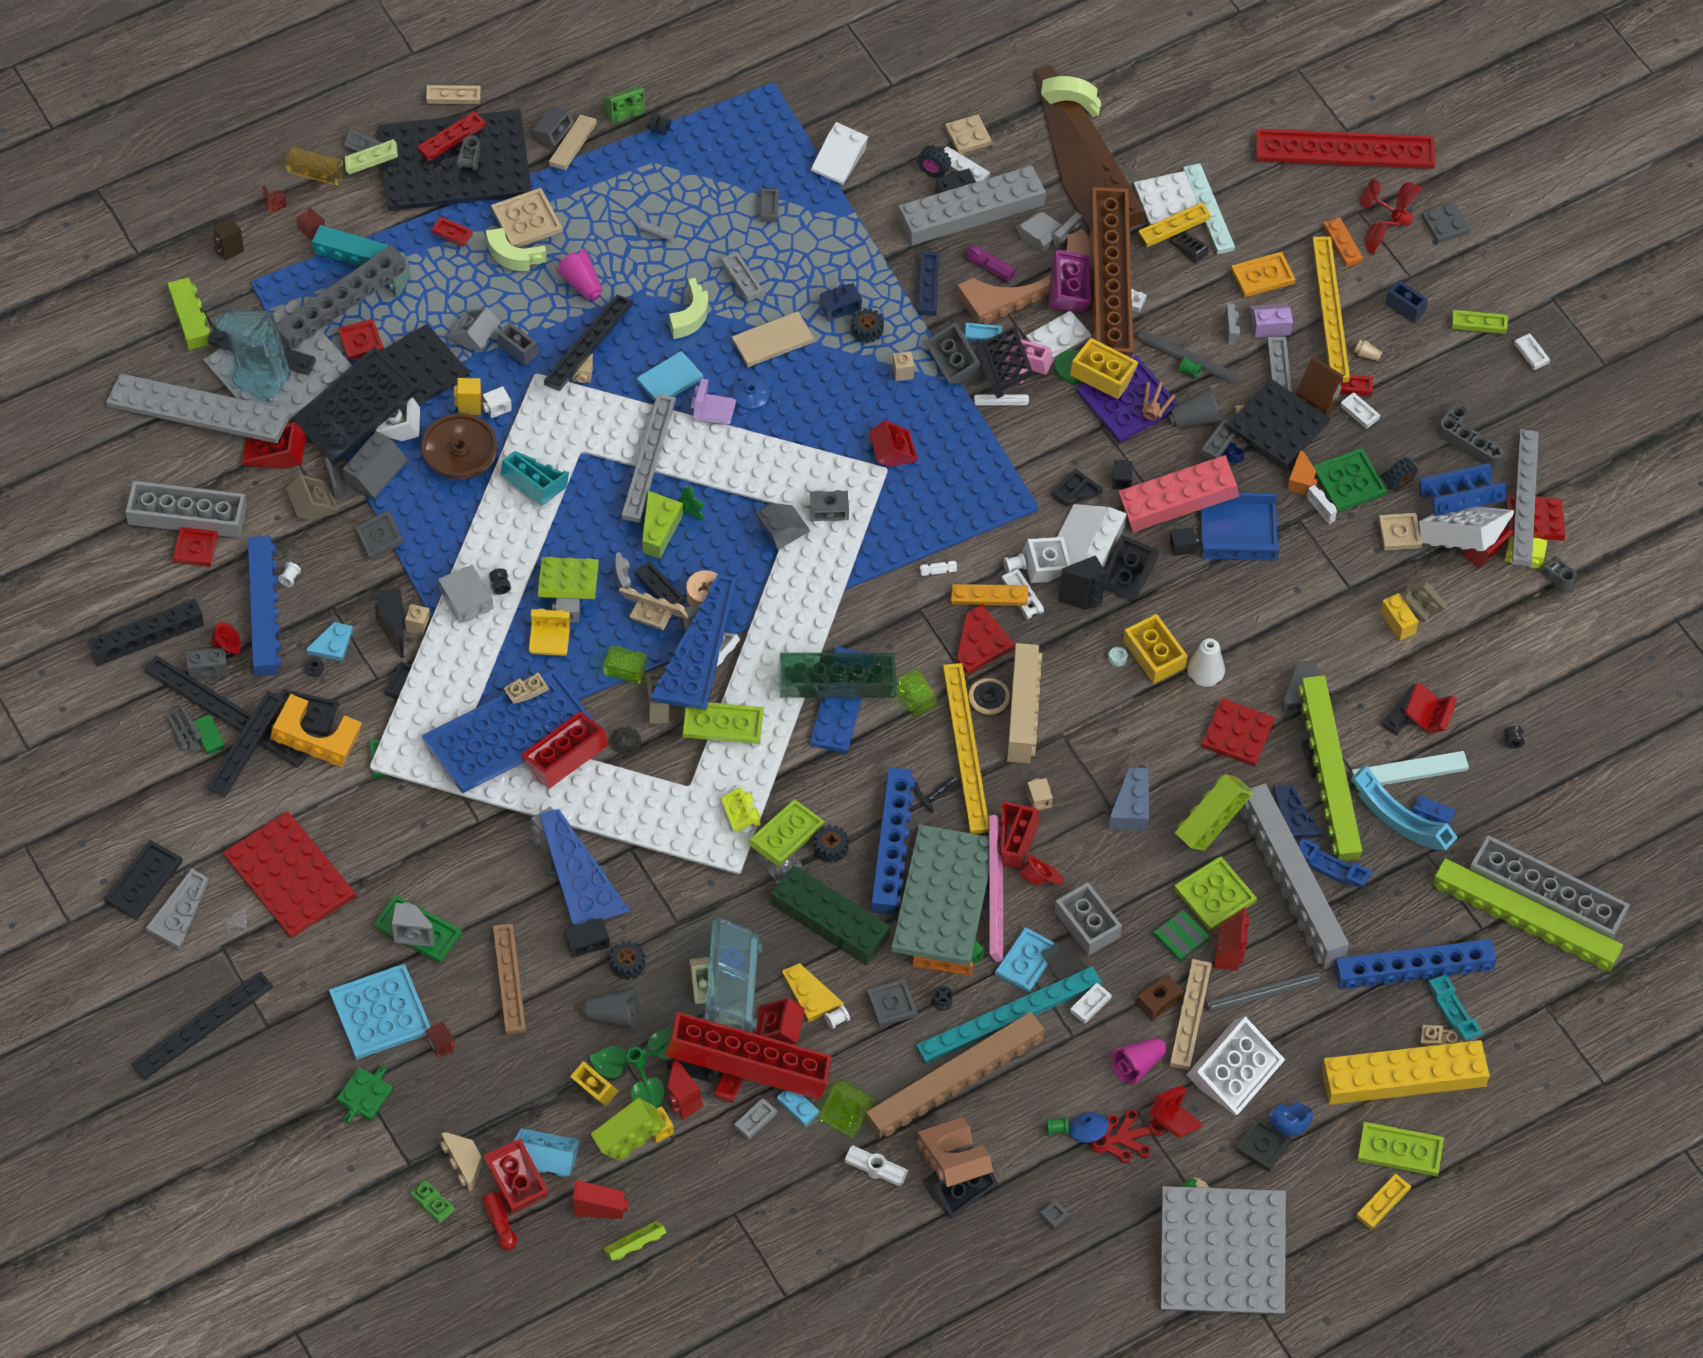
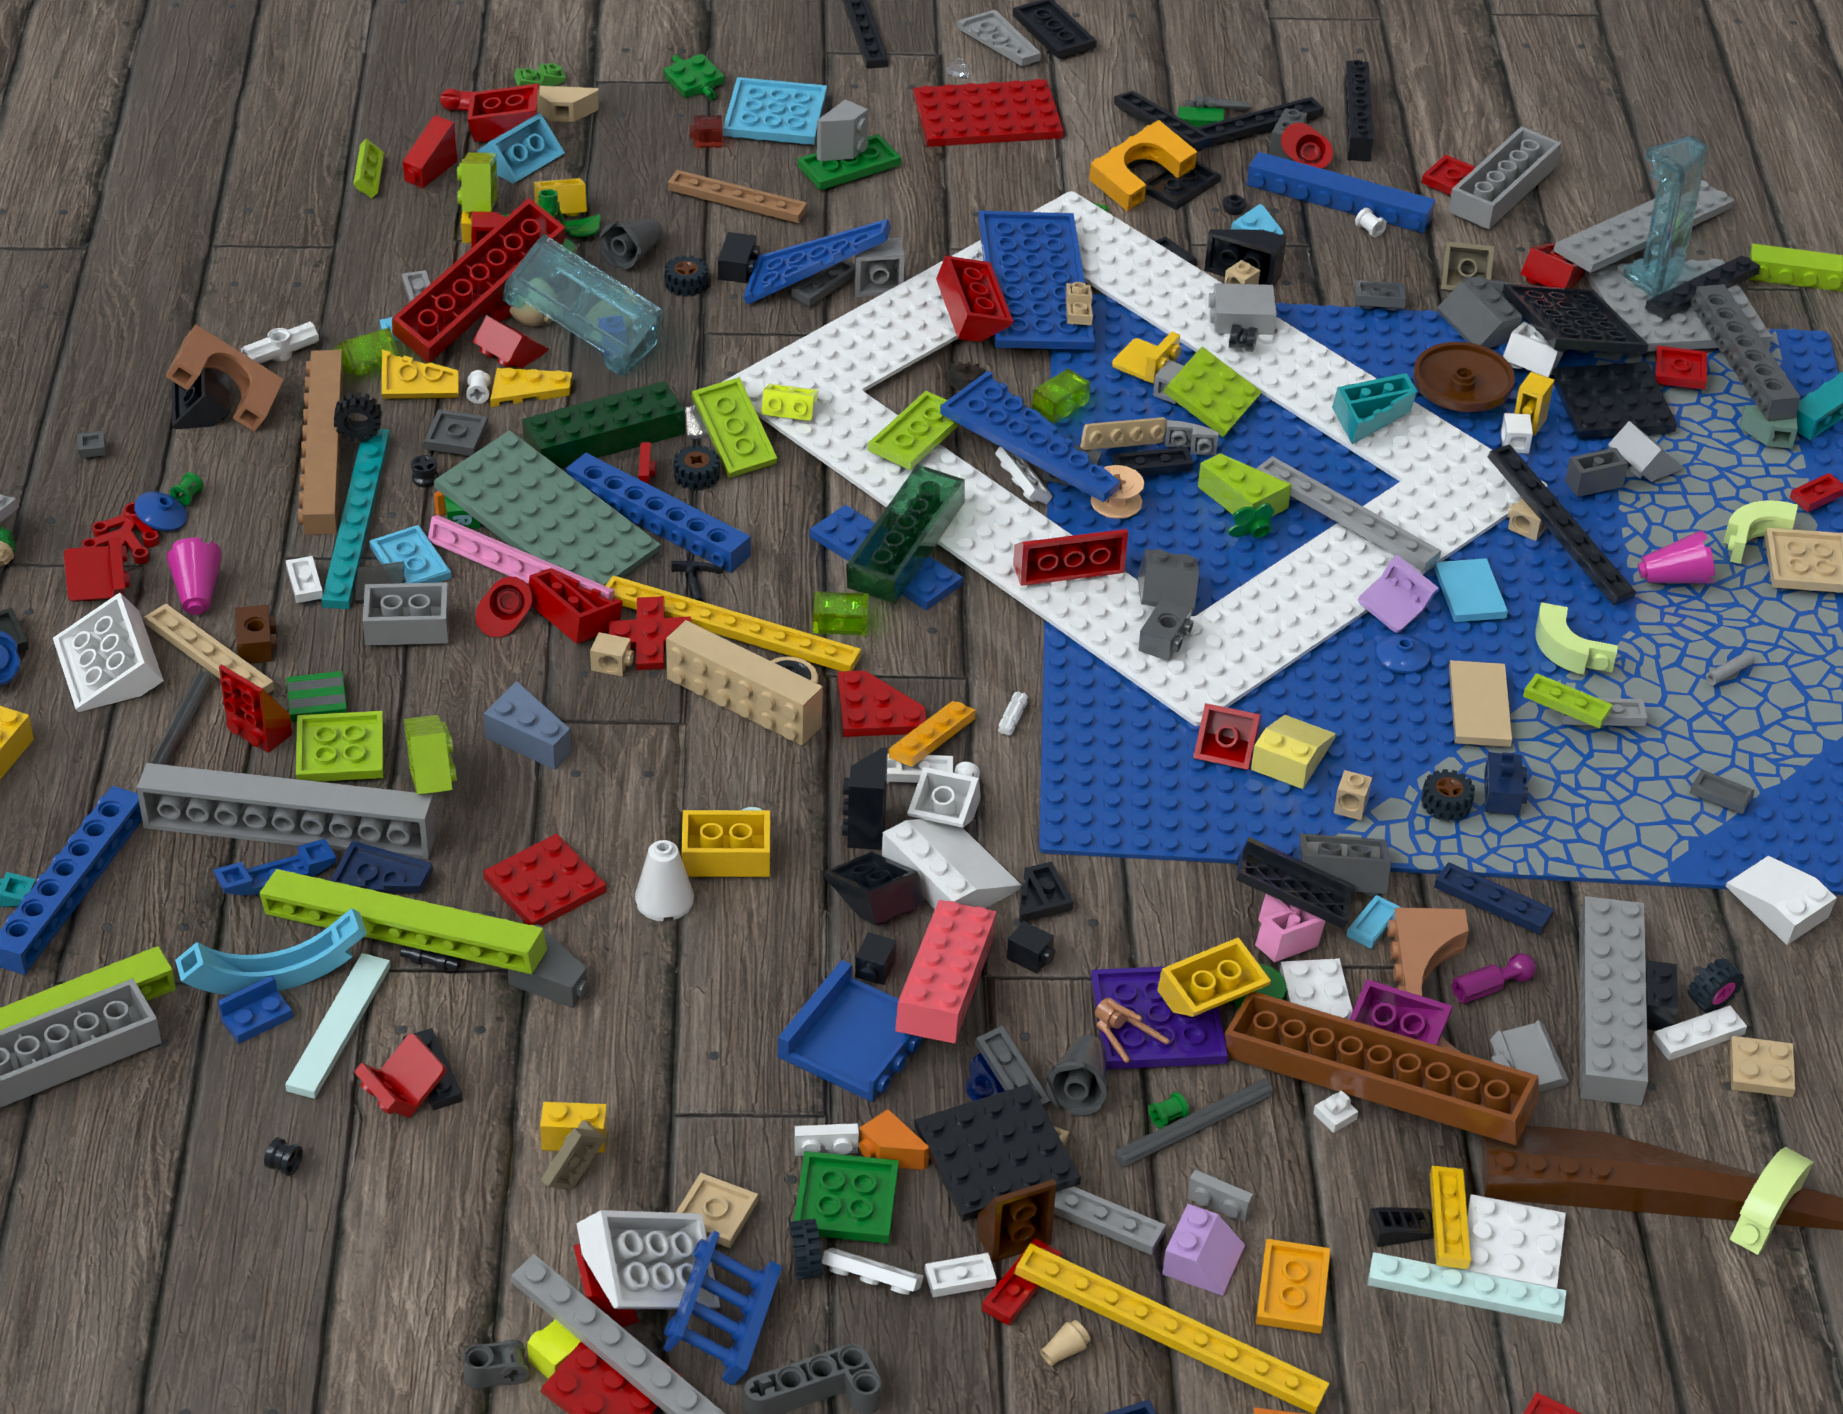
camera: 120 degrees right, 15 degrees down
(756, 287) = (1567, 700): none -> lime plate
(798, 577) = (1070, 557): none -> red slope
(854, 869) = (646, 467): none -> red plate
(856, 1056) = (412, 379): none -> yellow wing
(874, 407) = (1291, 750): none -> light yellow slope
(938, 1046) = (361, 405): none -> black tyre
(1005, 782) = (648, 631): none -> red plate
(1007, 399) = (1236, 901): white axle -> none
(1385, 444) = (872, 1271): none -> white plate

